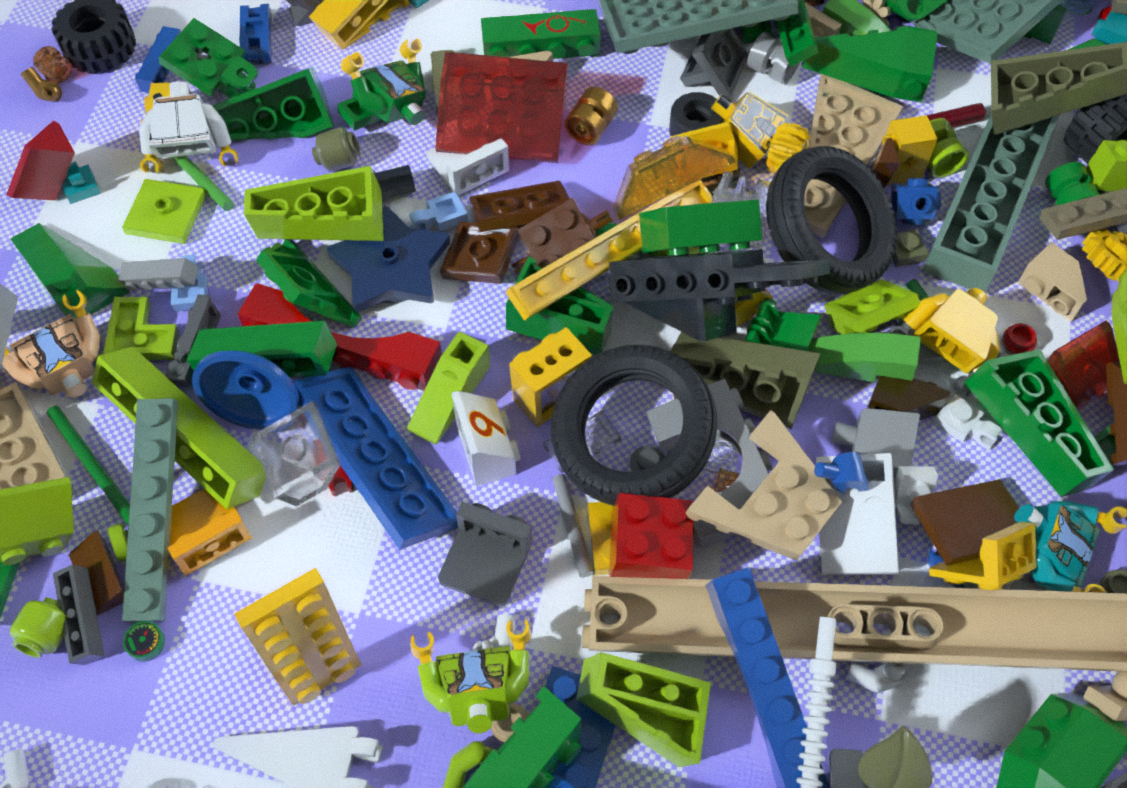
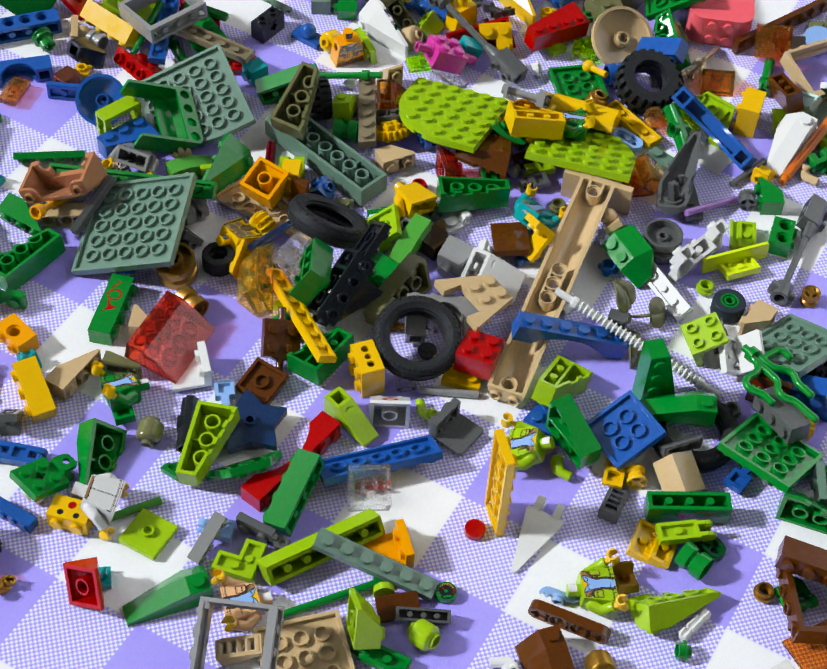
camera: 75 degrees left, 10 degrees down
(244, 388) = (320, 500): blue dish -> none
(392, 26) = (68, 376): none -> tan slope
(510, 496) = (422, 411): none -> lime arm
(516, 205) = (240, 353): reddish brown tile -> none
(649, 77) = (182, 272): none -> pearl gold wheel
(765, 159) = (270, 235): none -> clear blue bar
(844, 471) = (479, 265): blue piece -> none
(863, 112) = (265, 182): none -> light orange slope
(1008, 718) = (608, 267): none -> blue plate

